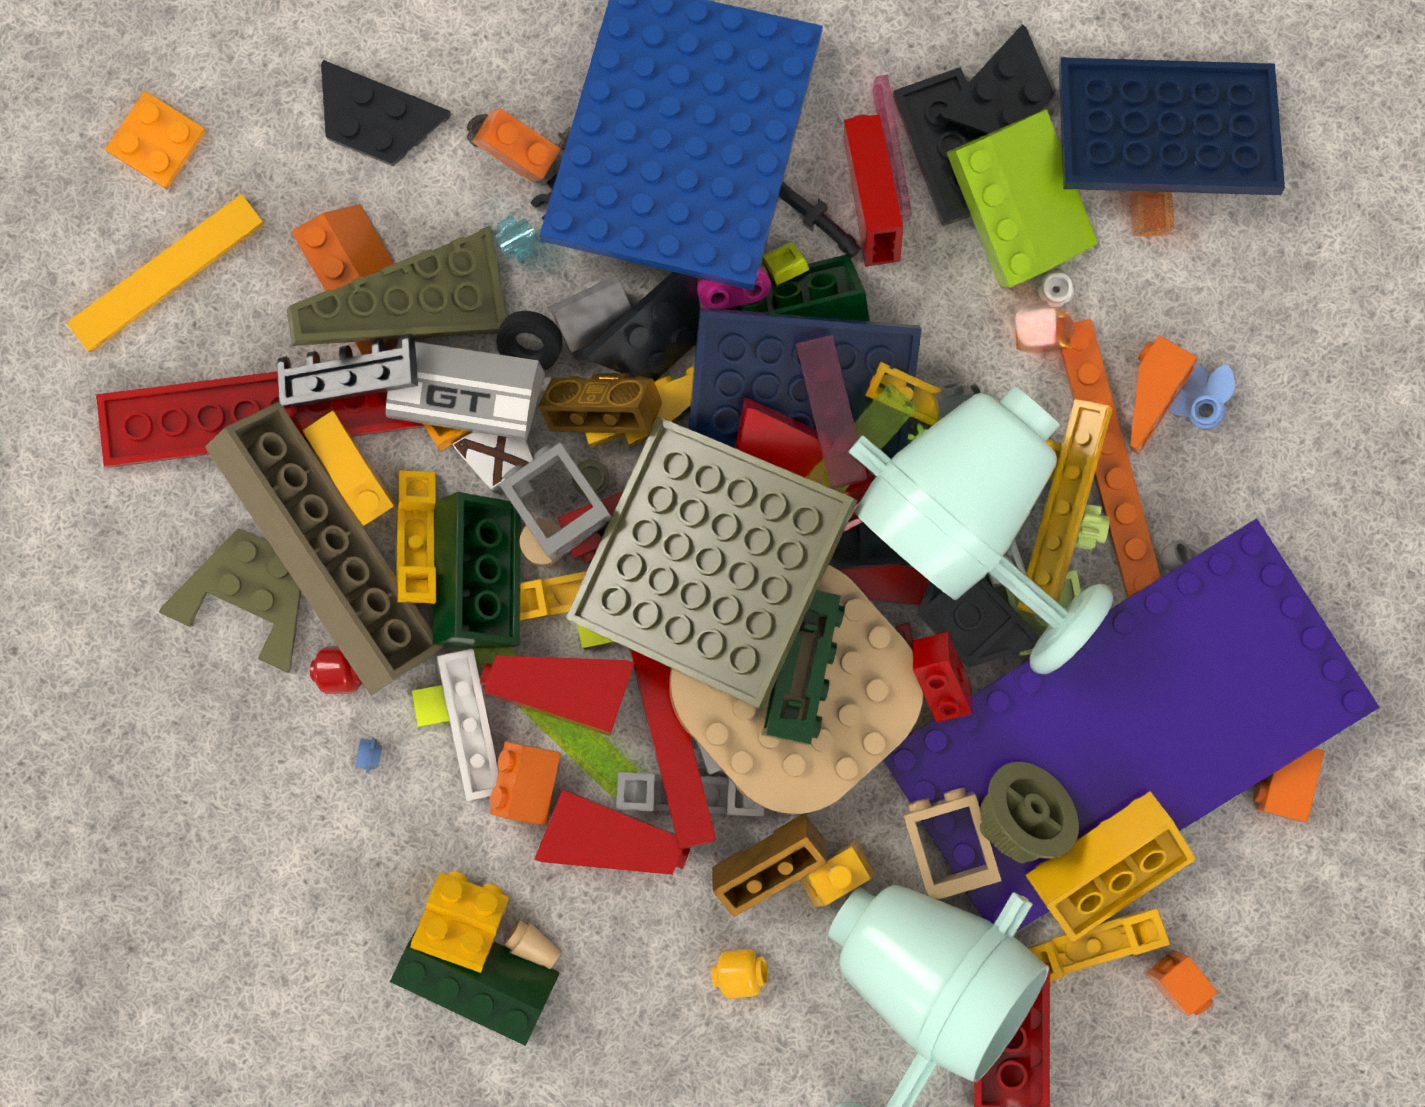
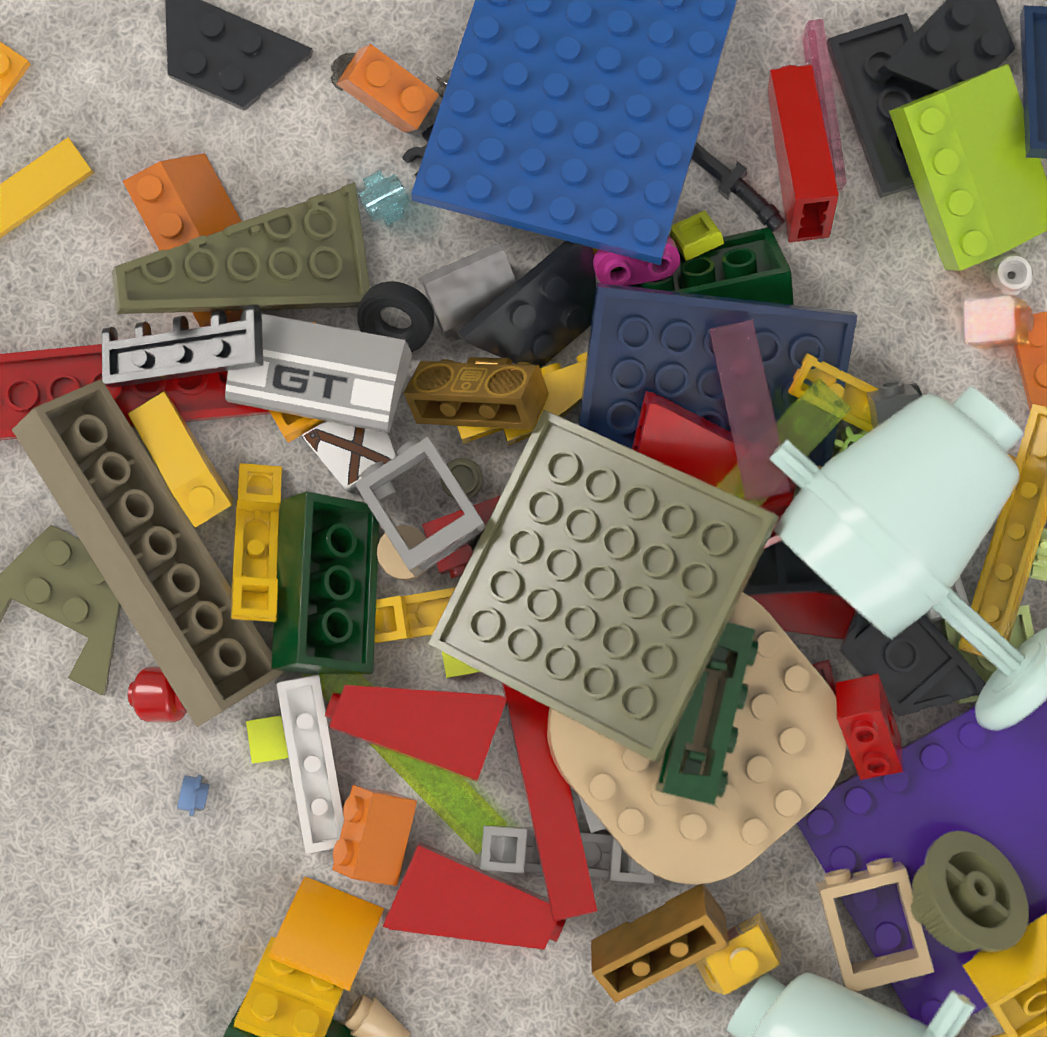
camera: 10 degrees right, 0 degrees up
(486, 867) = (326, 933): none -> light orange slope

